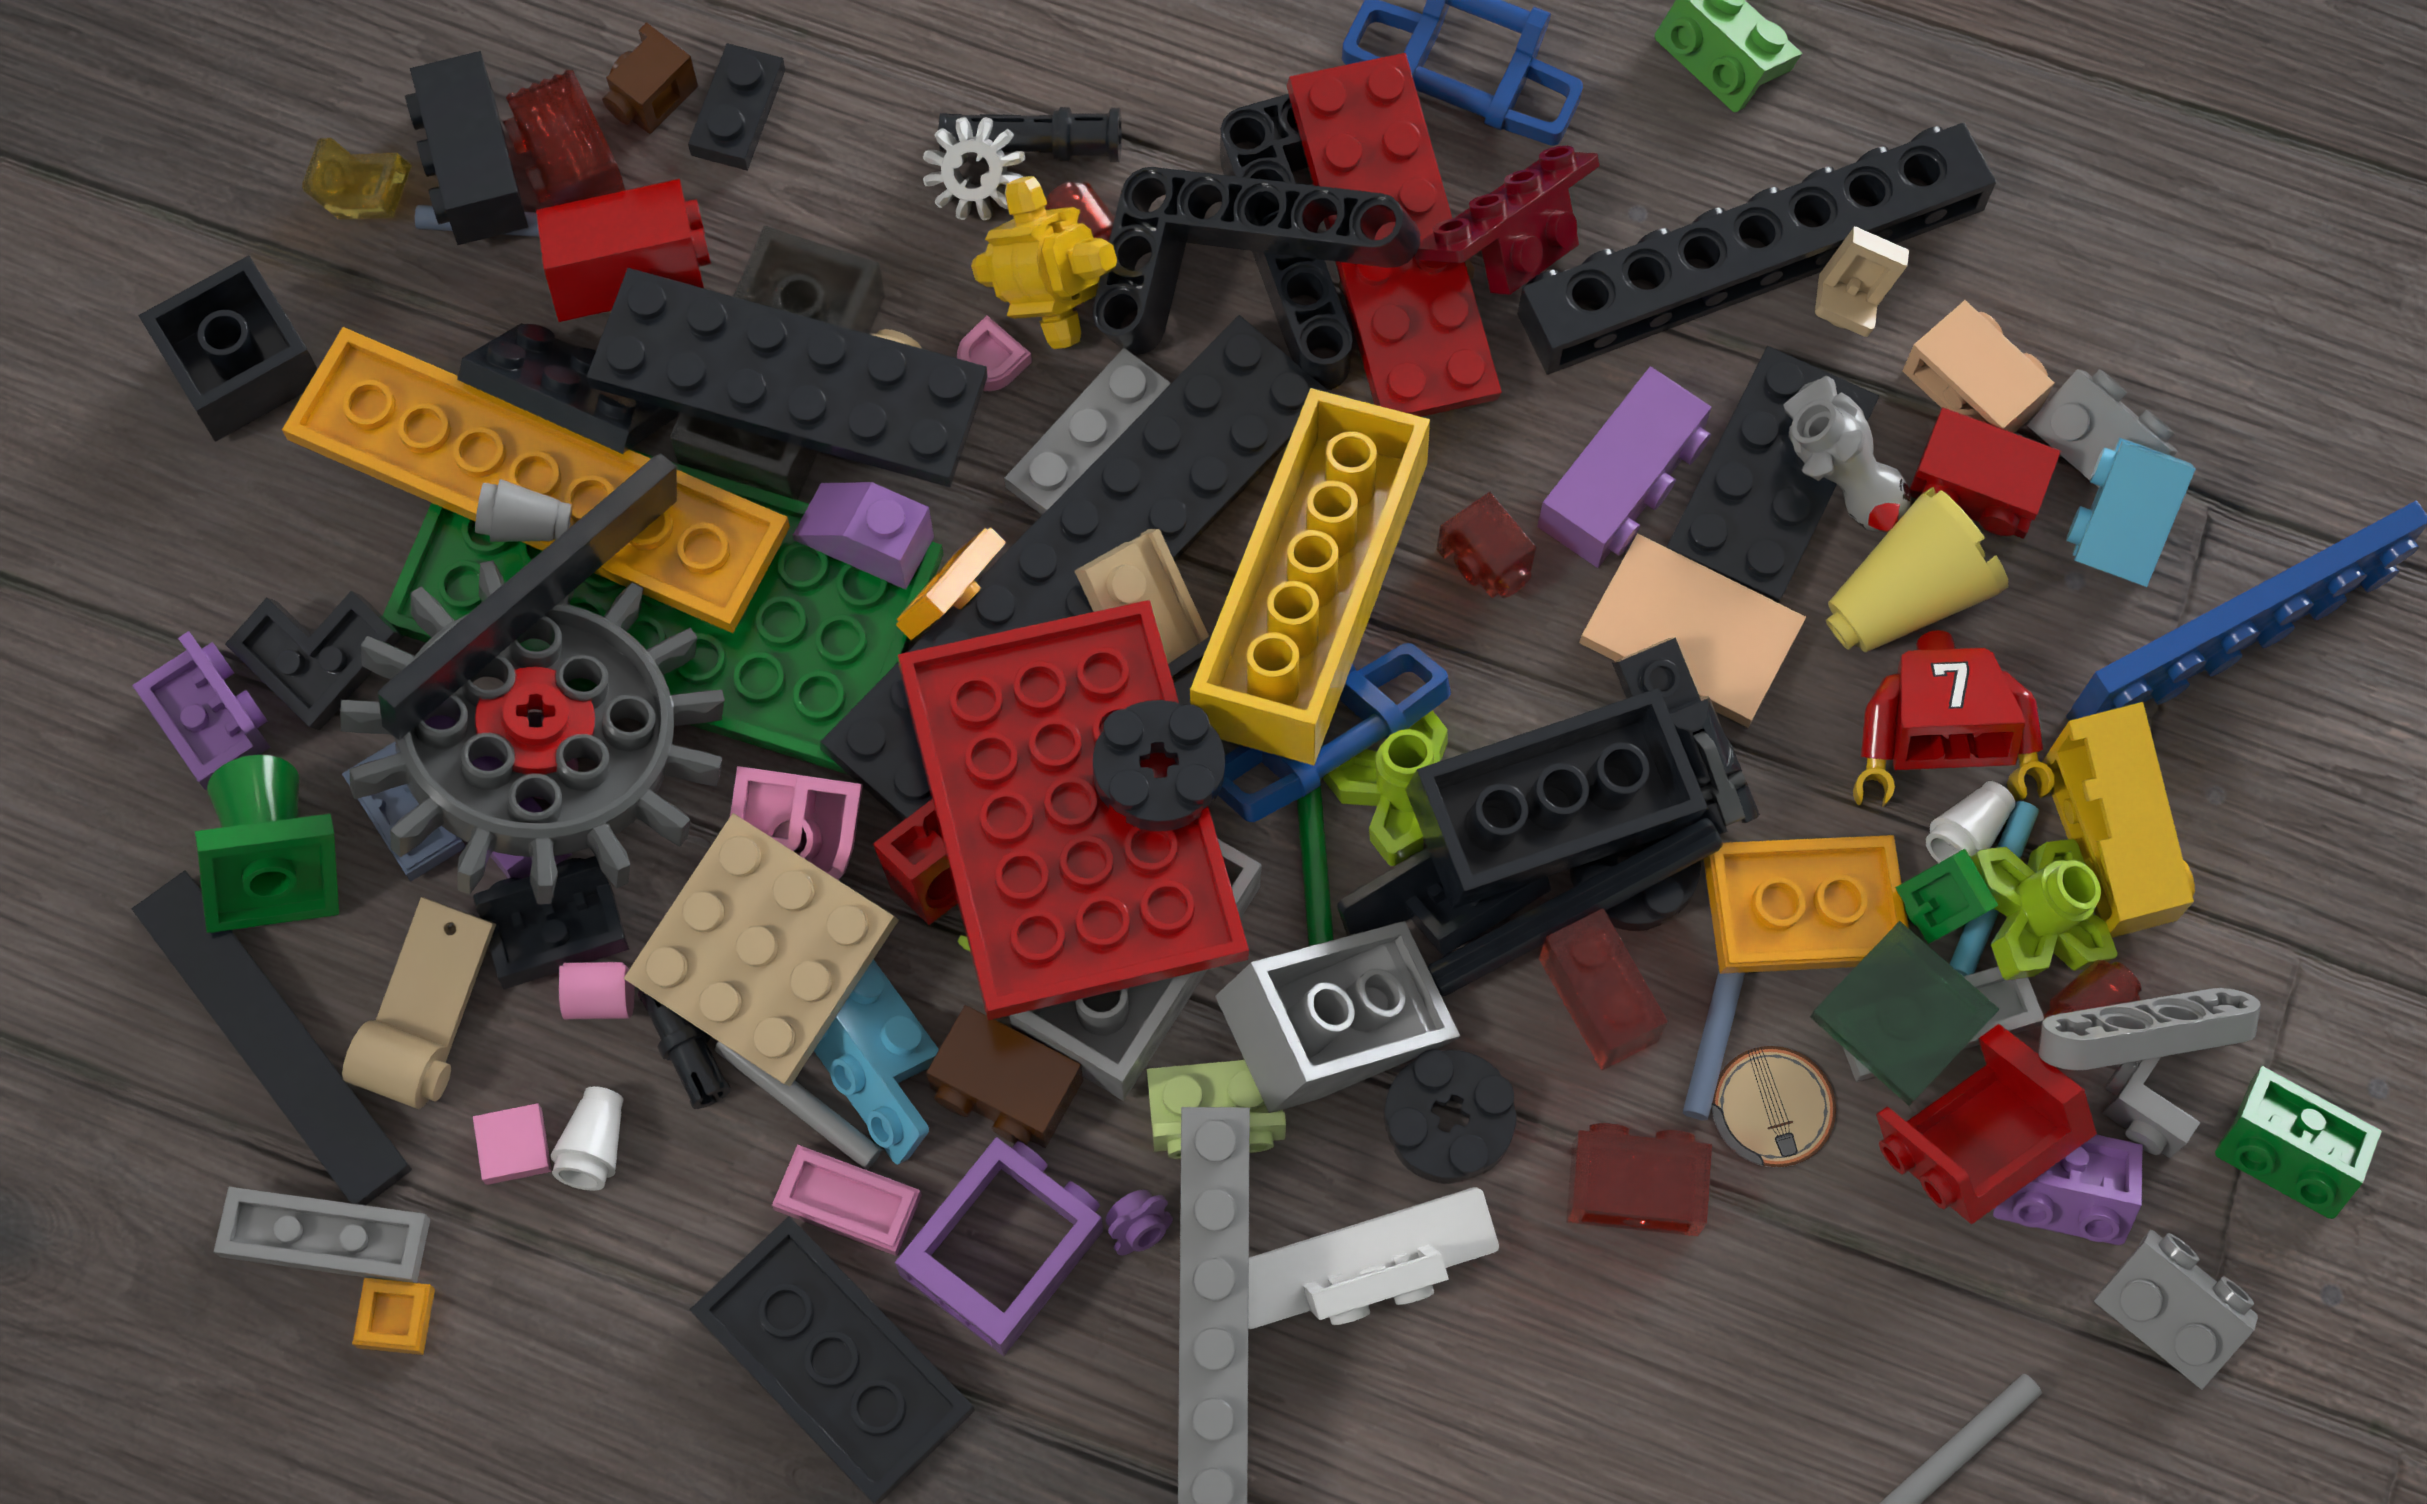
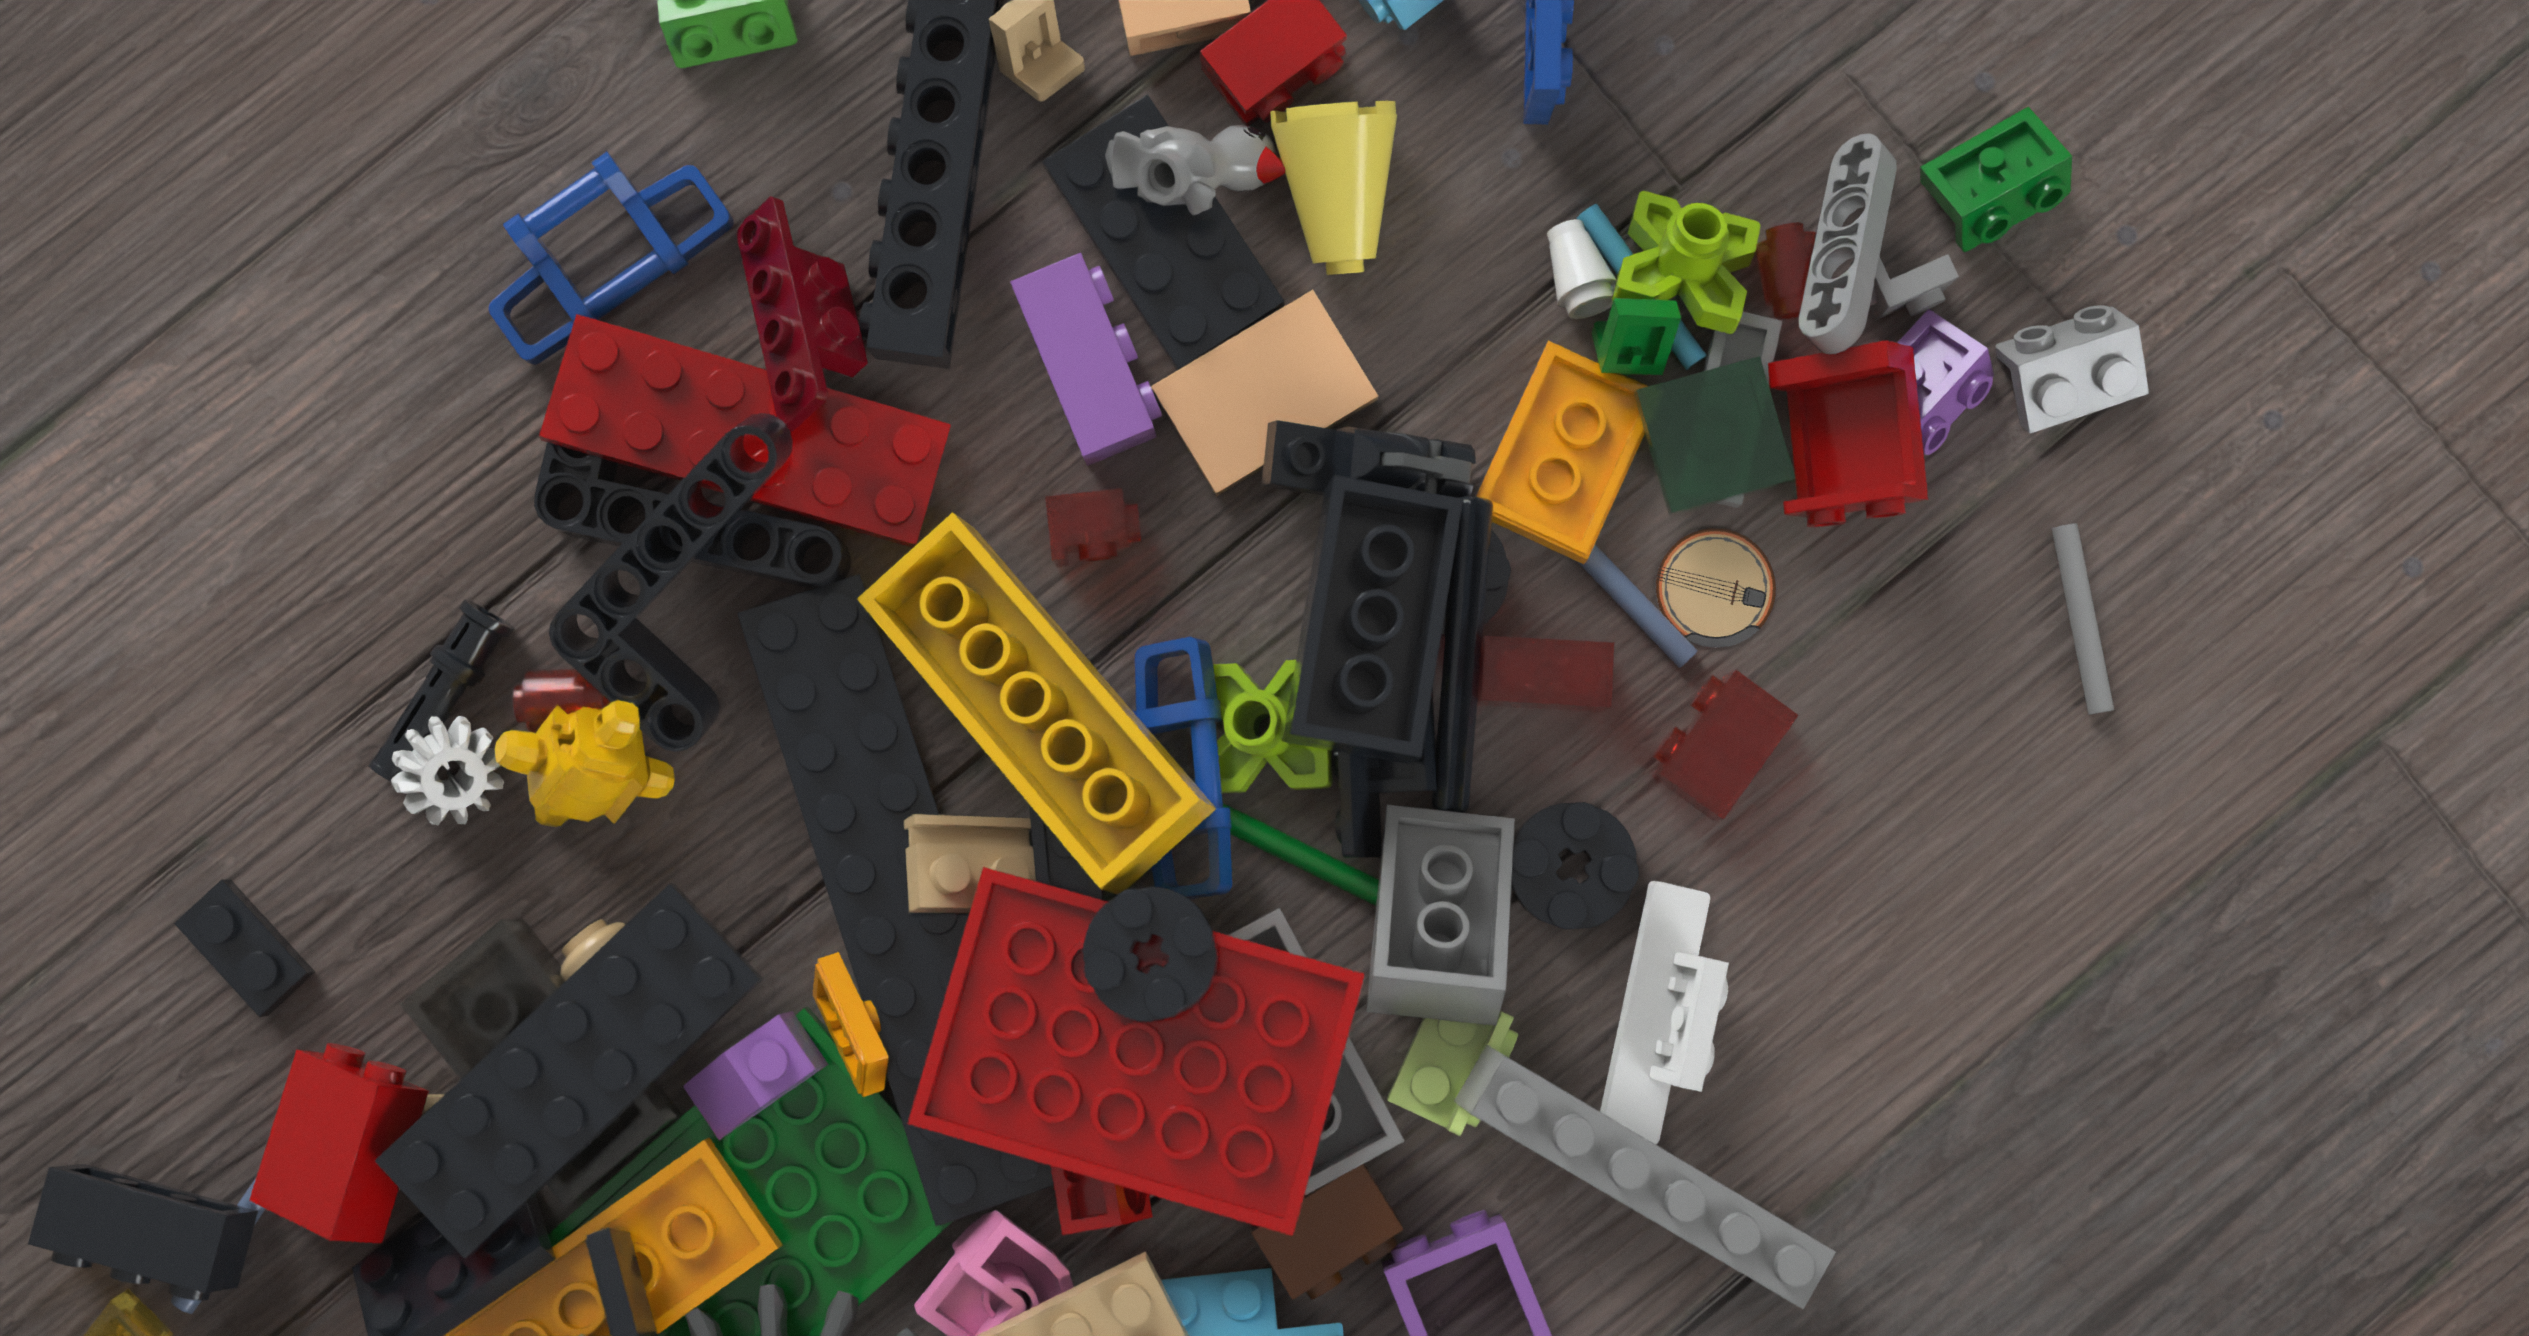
camera: 55 degrees left, 15 degrees up
(562, 140) = (190, 1134): clear red brick -> none
(649, 81) = (172, 1019): reddish brown brick -> none
(997, 350) = (639, 856): bright pink tile -> none
(1085, 430) = (767, 811): light grey plate -> none
(1138, 1221) = (1517, 1185): medium lavender plate -> none
(1951, 713) = (1476, 225): red torso -> none
(2121, 818) = (1655, 144): yellow wedge -> none

